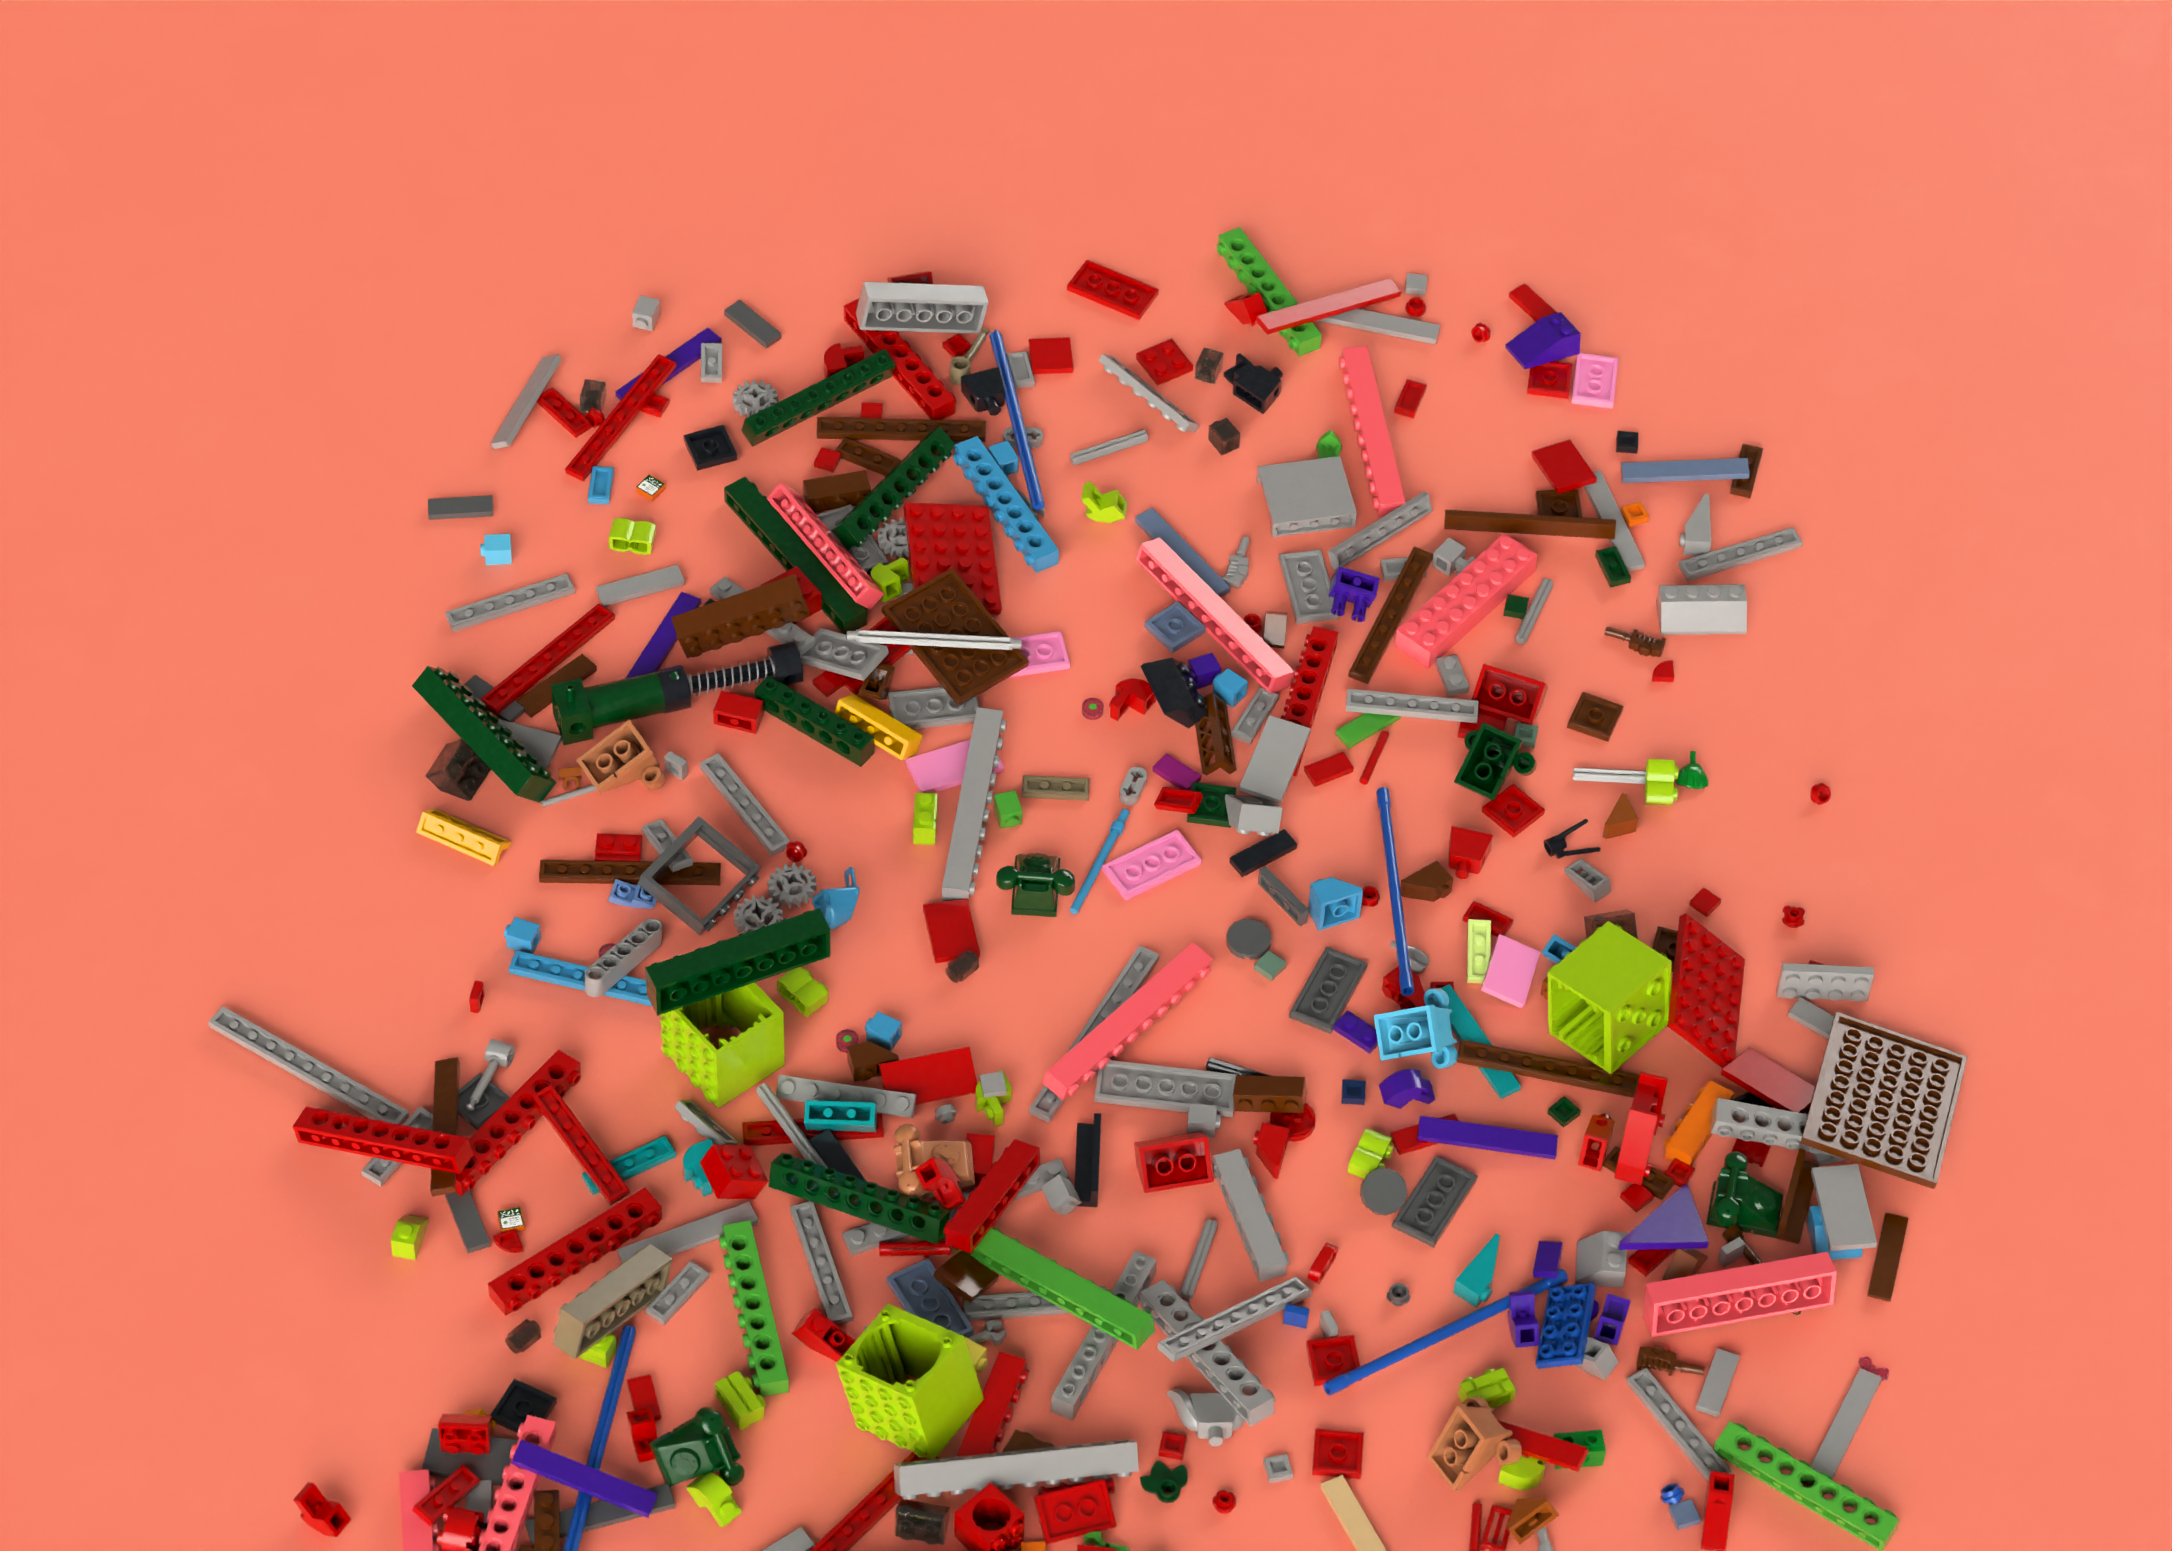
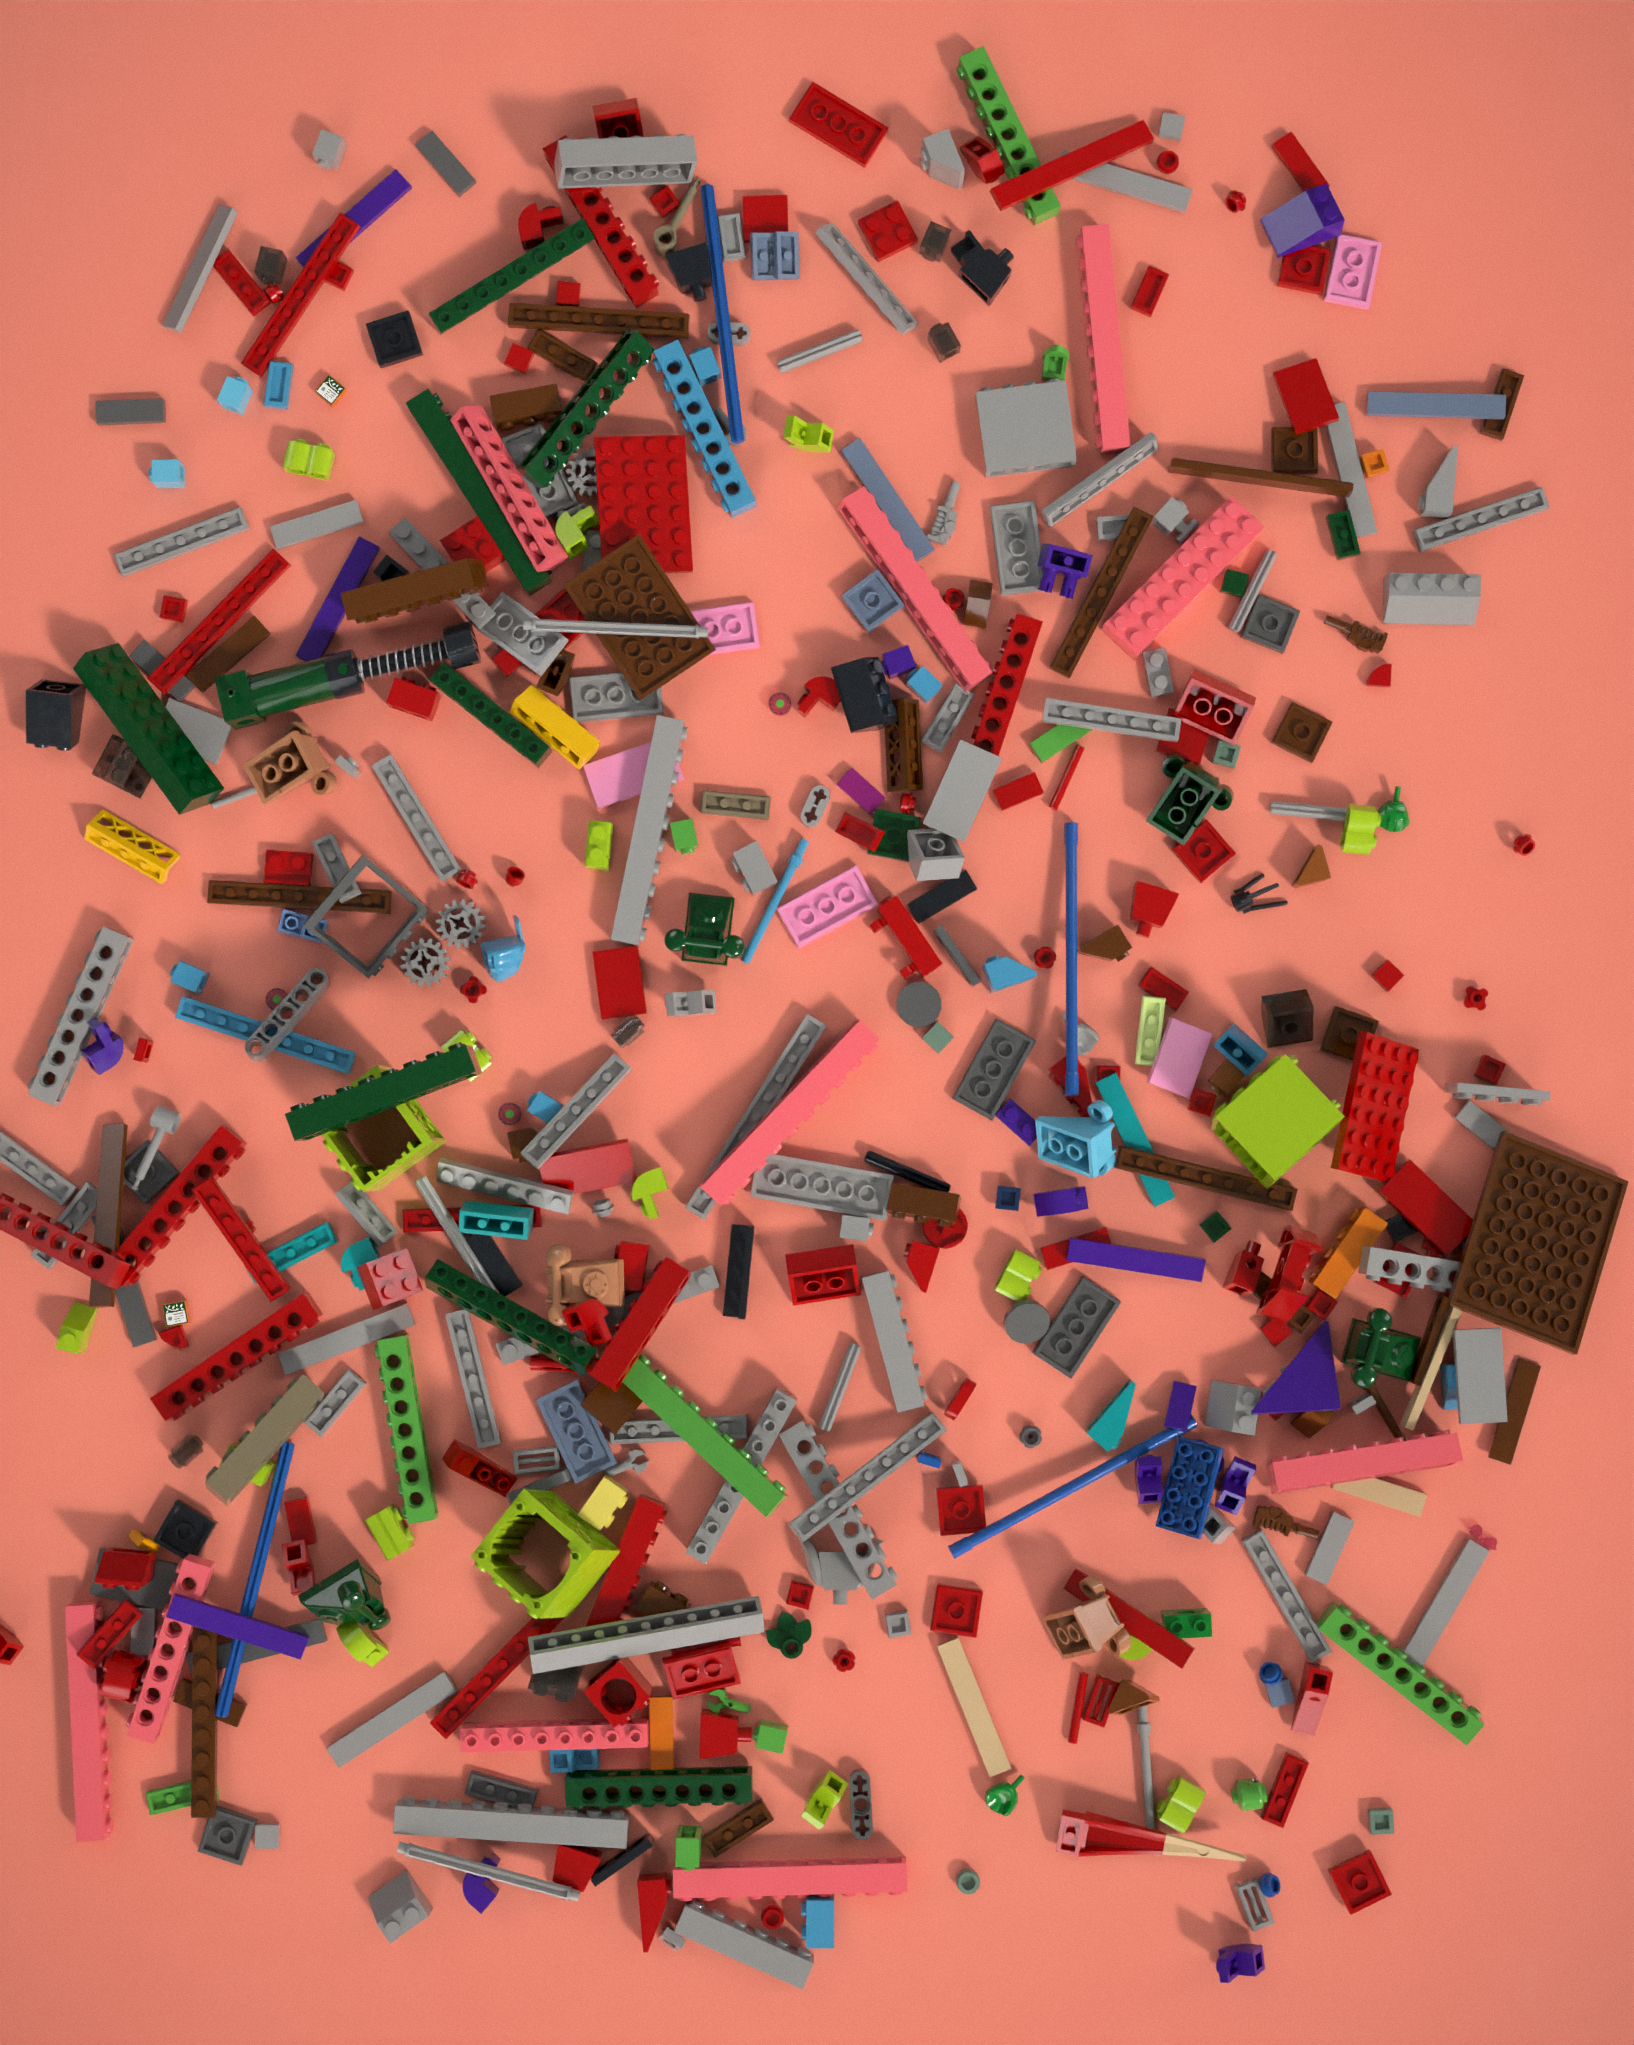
camera: 10 degrees right, 35 degrees up
(389, 730) = (54, 714): none -> black slope
(407, 985) = (101, 988): none -> light grey brick
(441, 992) = (106, 1050): none -> dark purple brick
(502, 653) = (173, 609): none -> red tile
(560, 490) = (235, 394): none -> medium azure brick
(568, 774) = (237, 774): dark orange tile -> none
(711, 362) = (398, 220): light grey plate -> none
(753, 398) = (453, 278): light grey gear -> none
(842, 848) = (514, 876): none -> red hinge
(915, 1026) = (575, 1111): none -> light grey plate
(992, 1084) = (648, 1188): light grey tile -> none
(1023, 942) = (690, 1003): none -> light grey brick
(1061, 379) = (774, 256): none -> sand blue slope
(1061, 1195) = (710, 1314): light grey brick -> none
(1078, 833) = (754, 868): none -> light grey brick
(1210, 305) = (942, 159): none -> light grey slope
(1222, 778) = (907, 803): none -> red plate
(1237, 885) = (908, 935): none -> red brick
(1492, 1386) = (1105, 1552): lime brick -> none
(1536, 1007) = (1201, 1102): none -> red plate
(1554, 636) = (1270, 624): none -> dark grey tile
(1597, 889) = (1288, 952): light grey slope -> none
(1627, 442) = (1378, 360): black tile -> none
(1766, 1333) = (1385, 1494): none -> tan tile
(1798, 1205) = (1421, 1392): none -> tan tile

